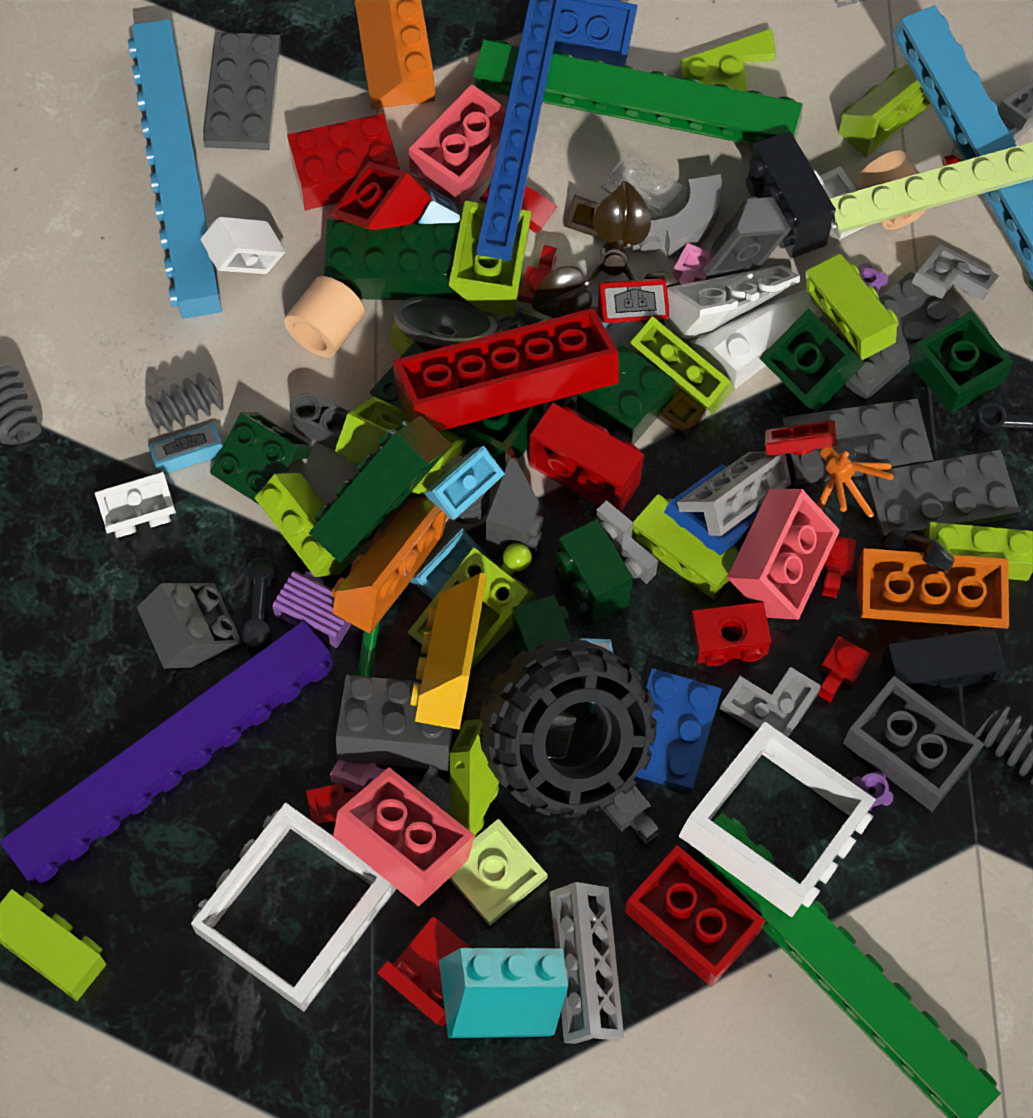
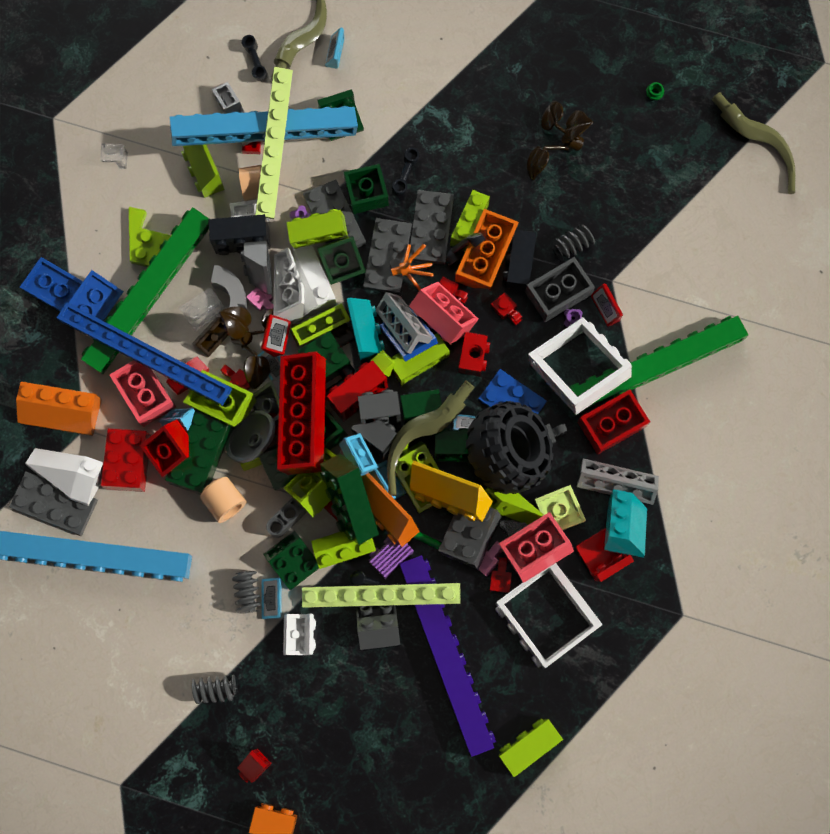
camera: 70 degrees left, 10 degrees up
(240, 612) = (381, 595): none -> yellowish green plate
(242, 245) = (162, 531): white brick -> none
(295, 89) = (72, 474): none -> white wedge
(558, 577) = (425, 425): none -> olive animal
(562, 492) = (380, 408): none -> dark grey brick
(619, 530) = (408, 387): light grey plate -> none
(649, 484) = (384, 362): none -> lime slope
(701, 437) = (364, 328): none -> teal slope
(780, 710) = (520, 347): light grey plate -> none
(801, 438) = (383, 281): red plate -> none
(921, 844) = (607, 305): none -> slope
(950, 268) = (311, 172): light grey plate -> none

